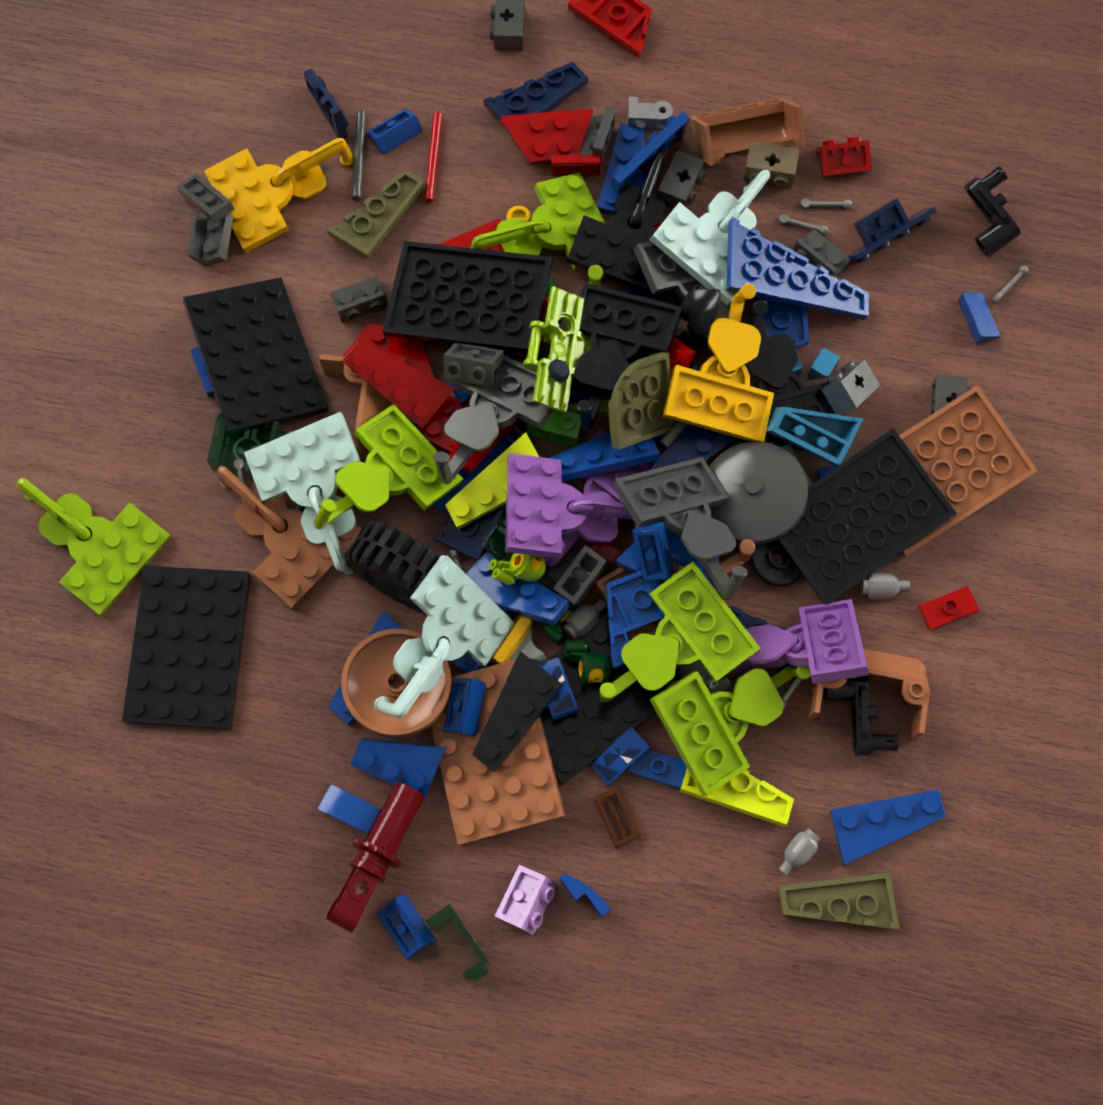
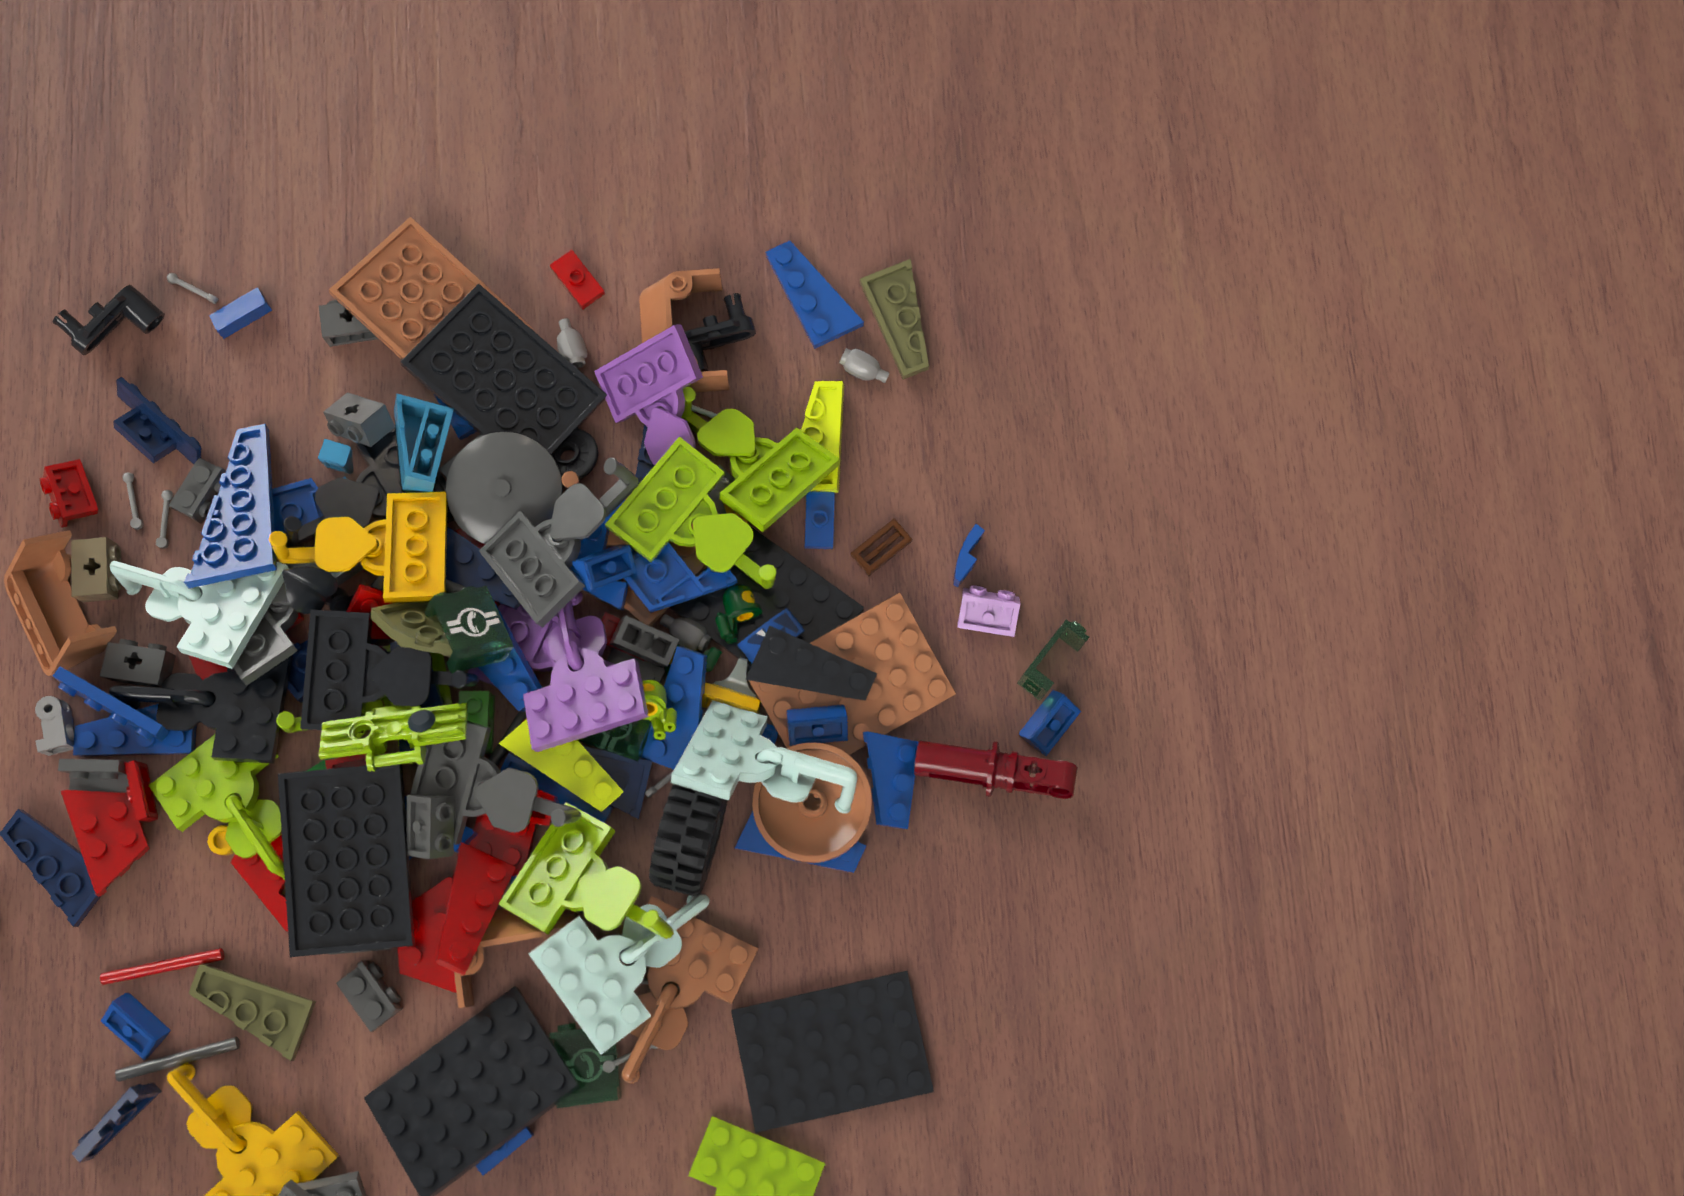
camera: 110 degrees left, 5 degrees up
(349, 809) = (953, 814): blue slope -> none
(620, 756) = (820, 558): slope -> none
(630, 428) = (471, 627): none -> clear green panel

